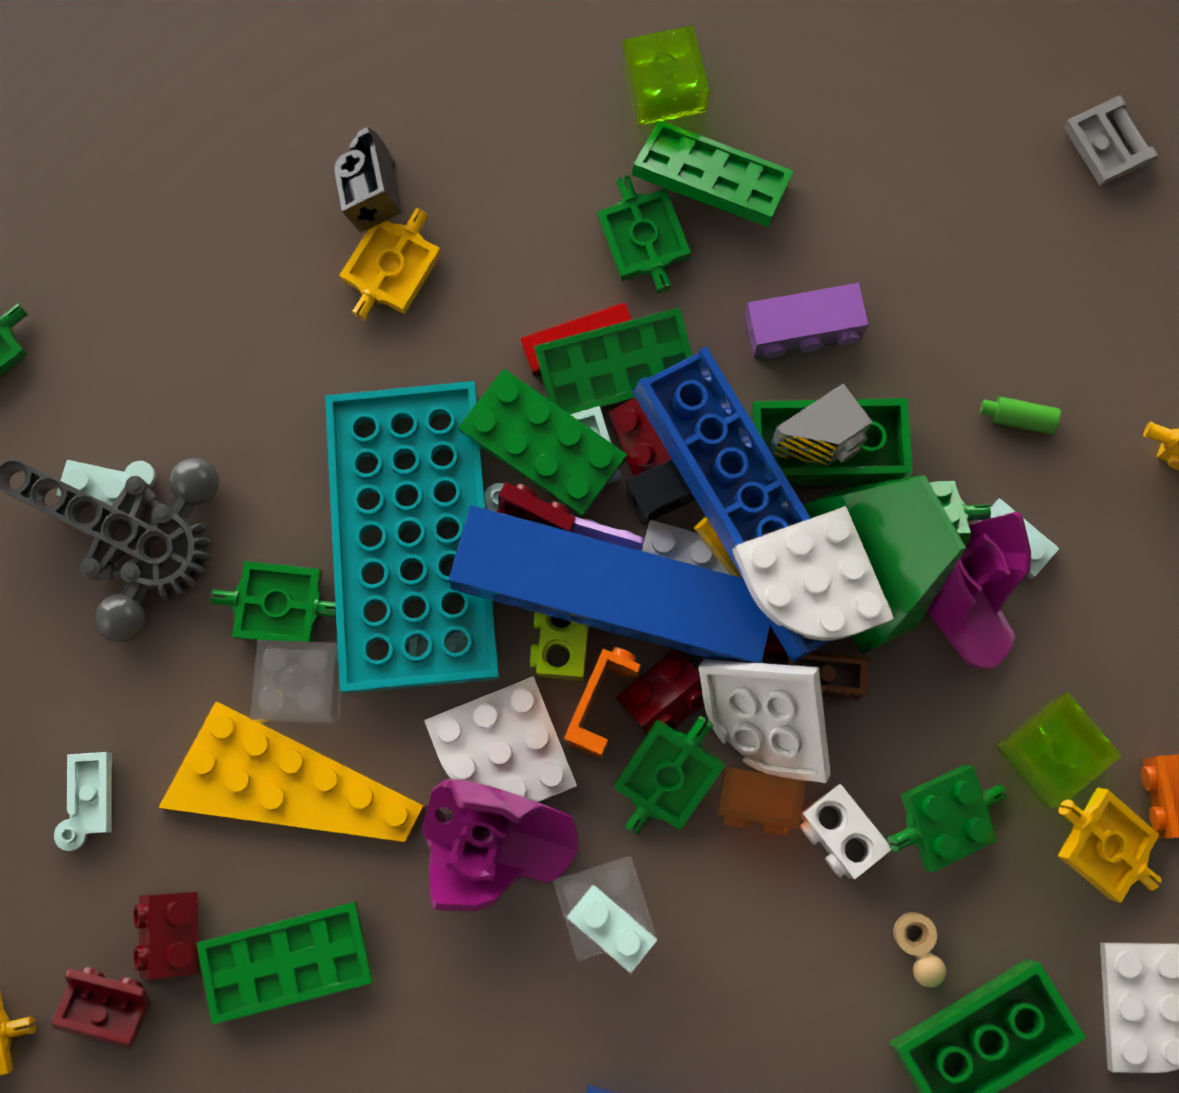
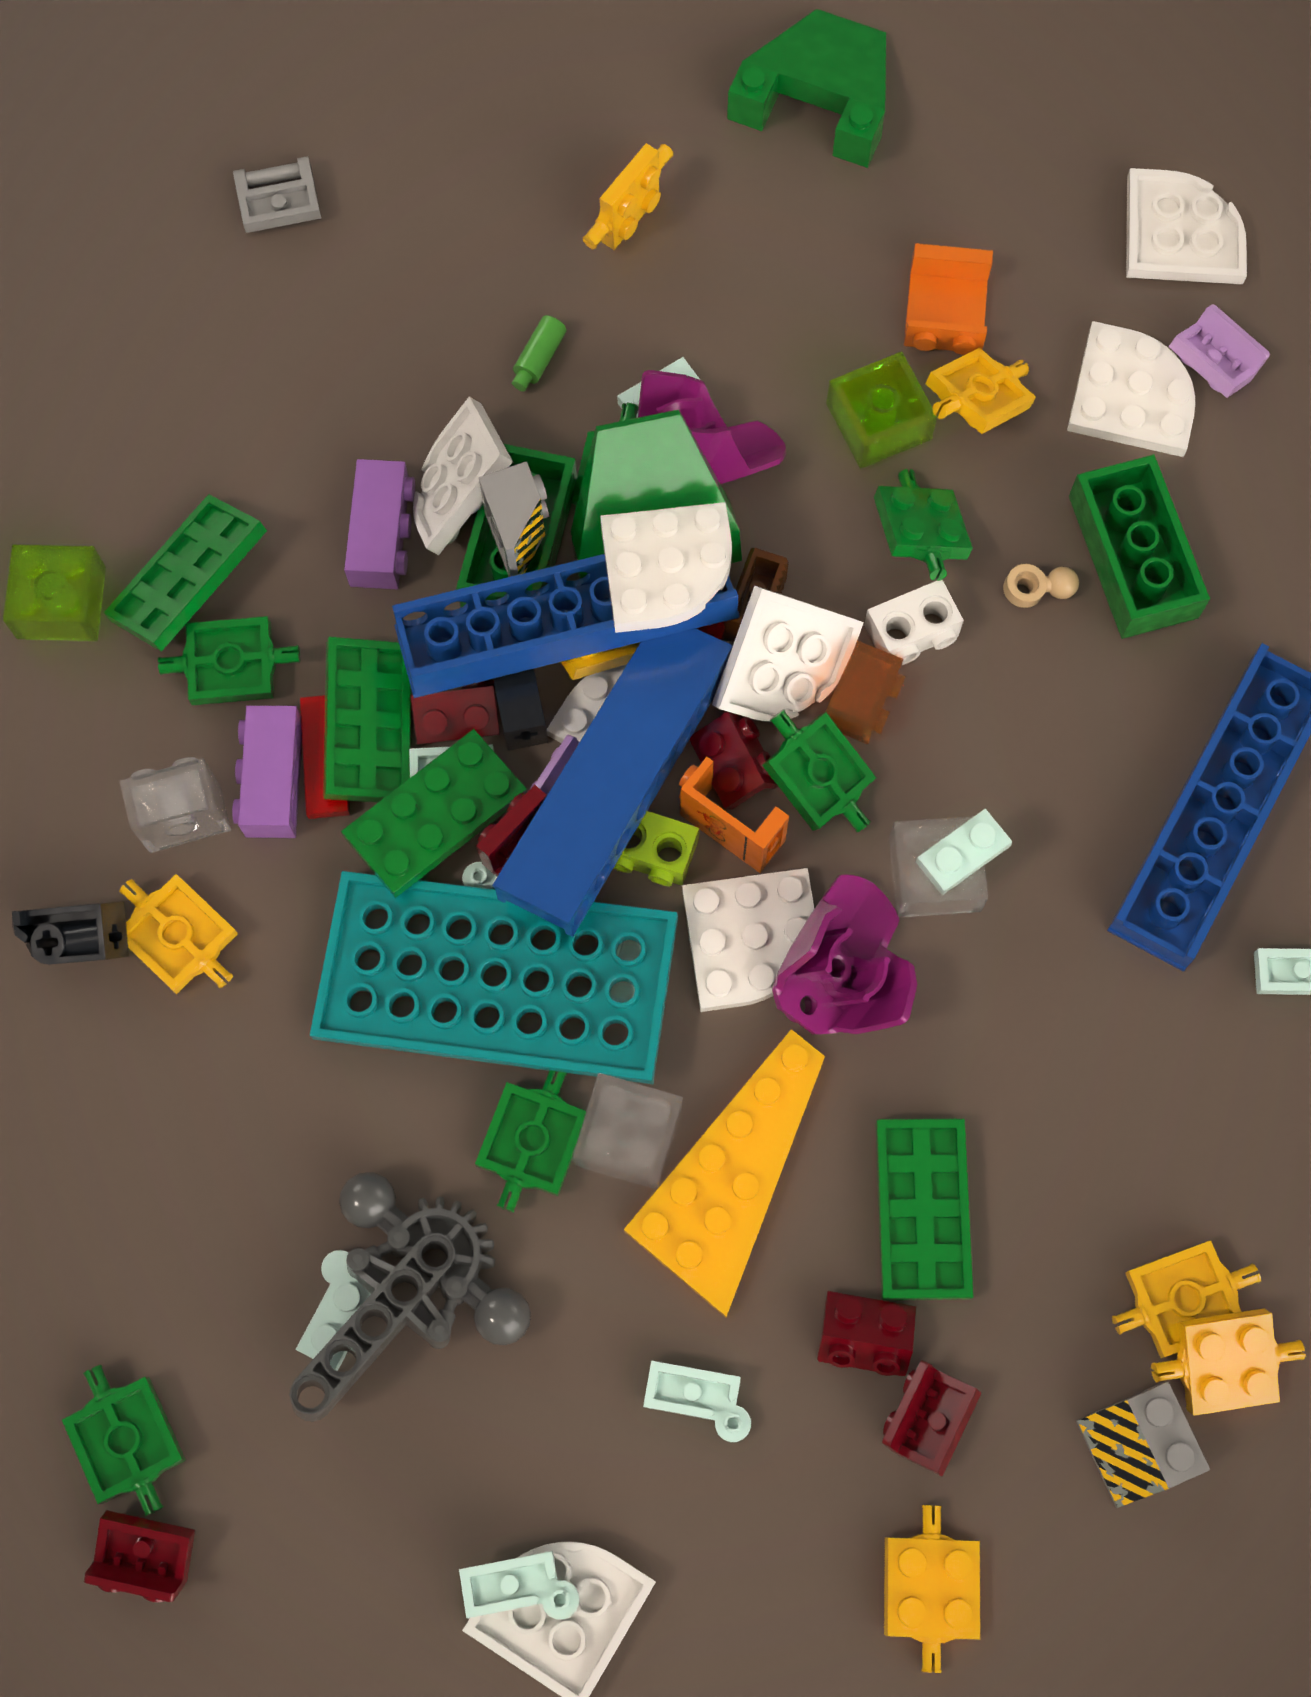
camera: 80 degrees left, 5 degrees down
(495, 226) = (175, 804): none -> clear brick
(549, 296) = (268, 772): none -> medium lavender brick
(873, 375) = (452, 470): none -> white plate

